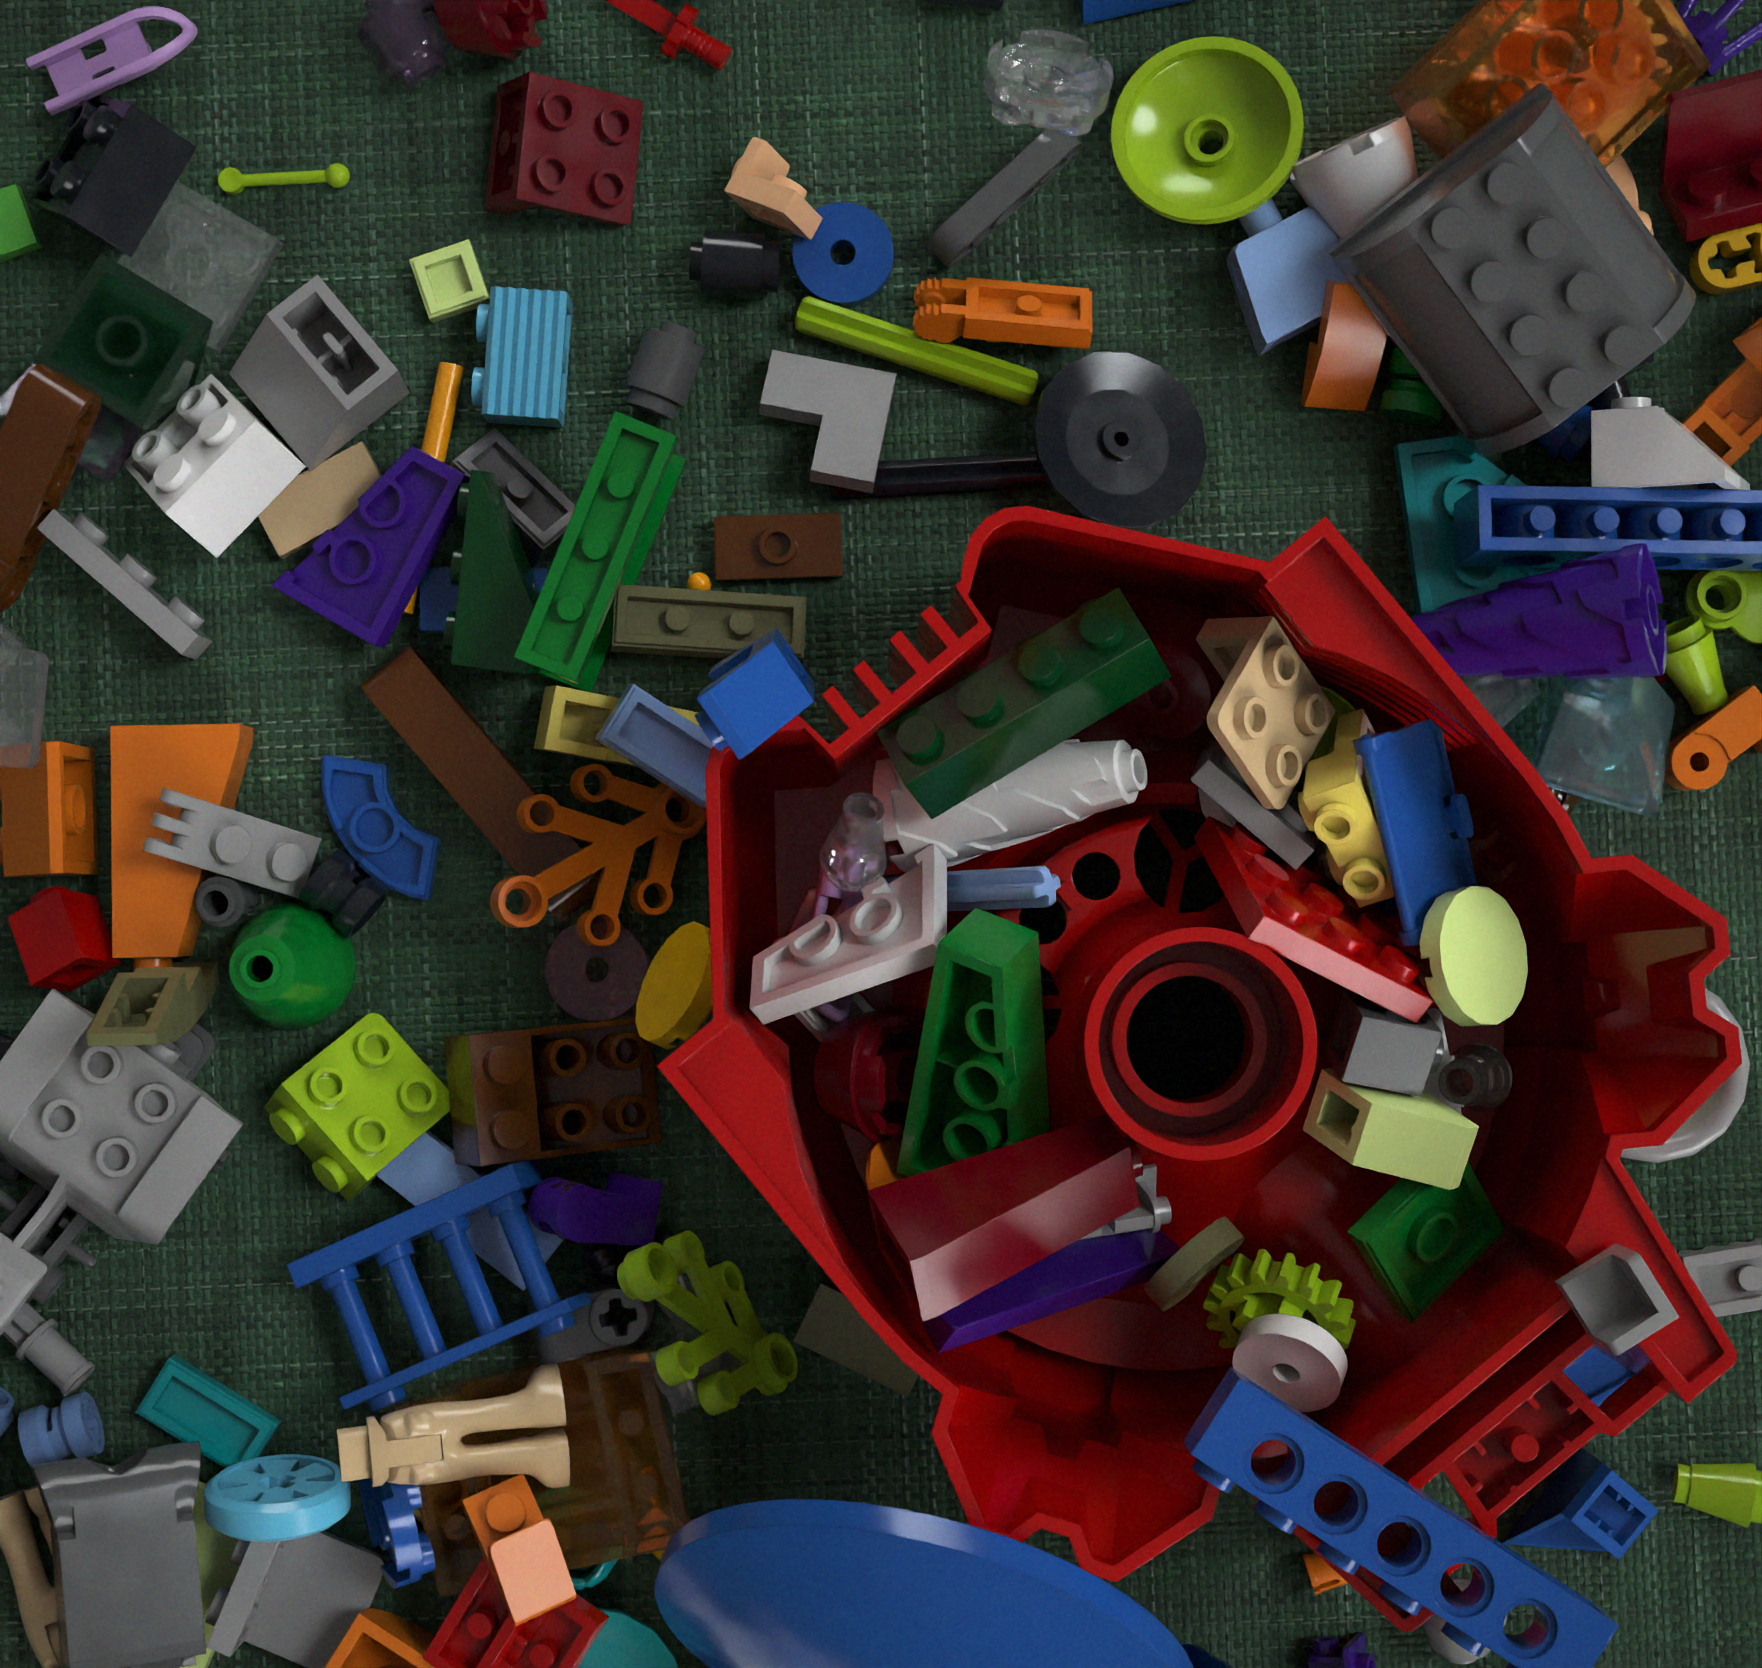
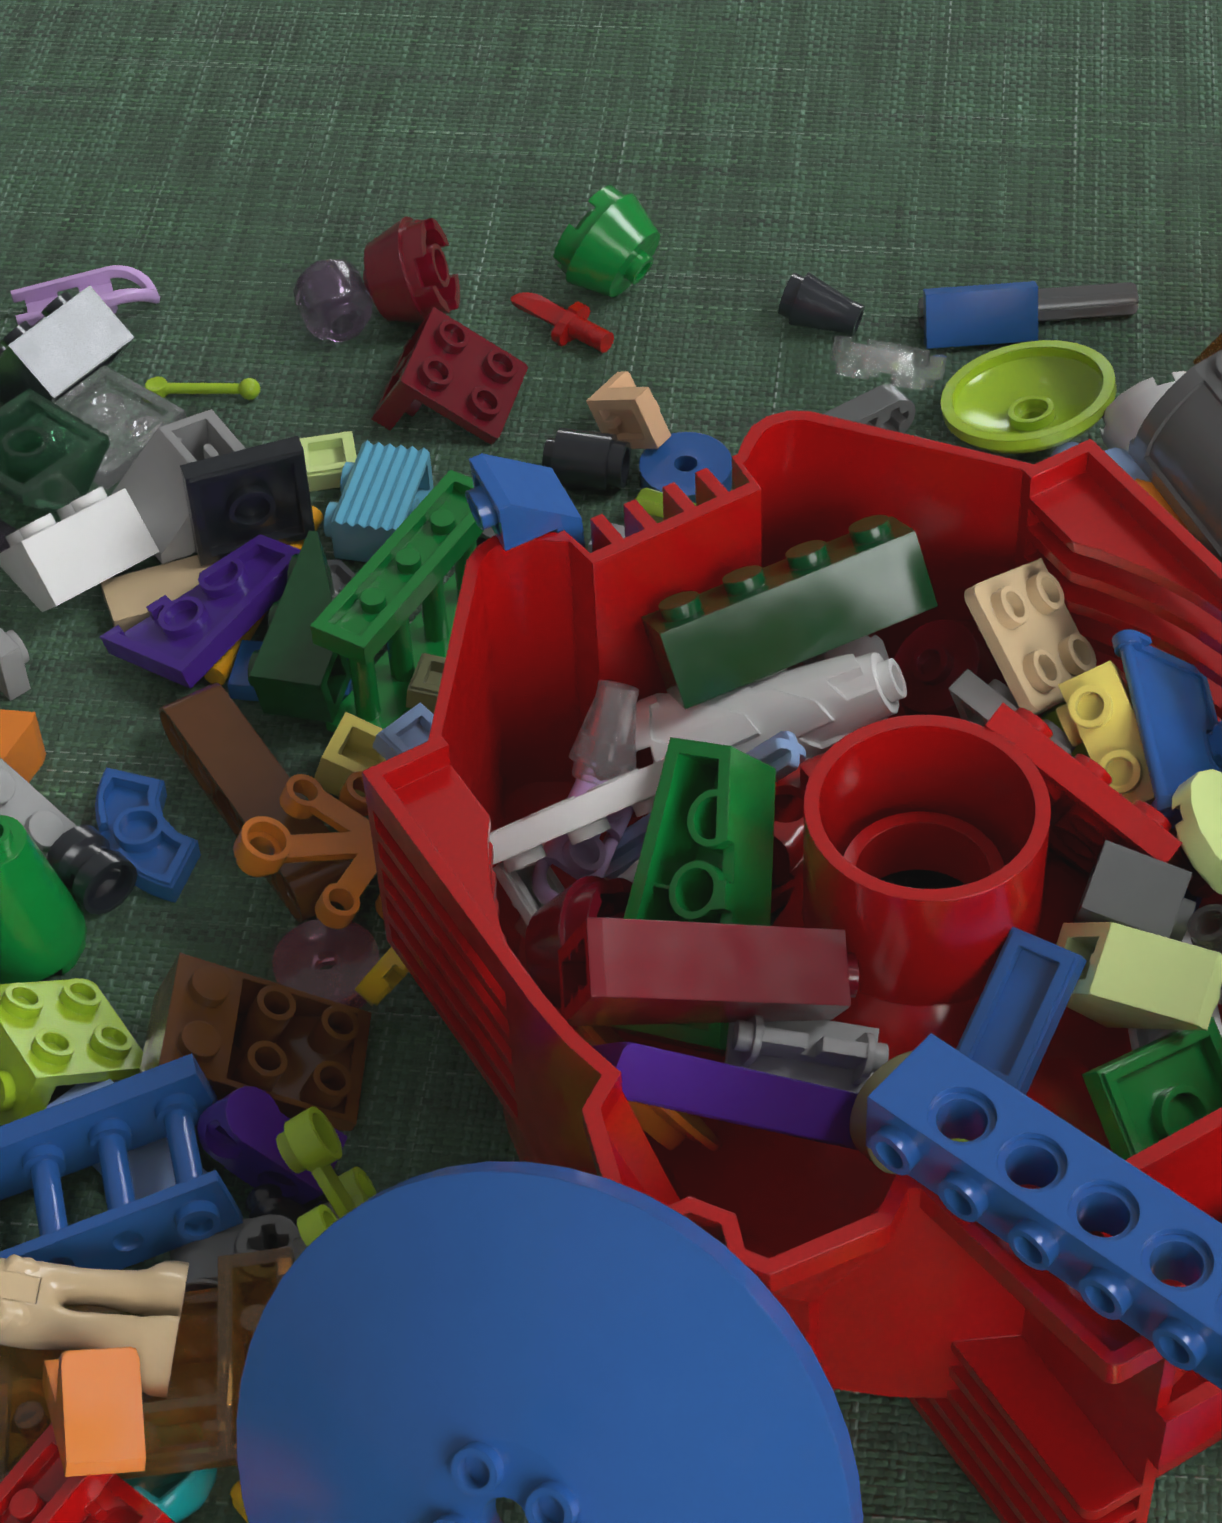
camera: 15 degrees right, 40 degrees down
(392, 417) = (246, 496): none -> black tile
(1287, 1176) = (1021, 1007): none -> blue tile

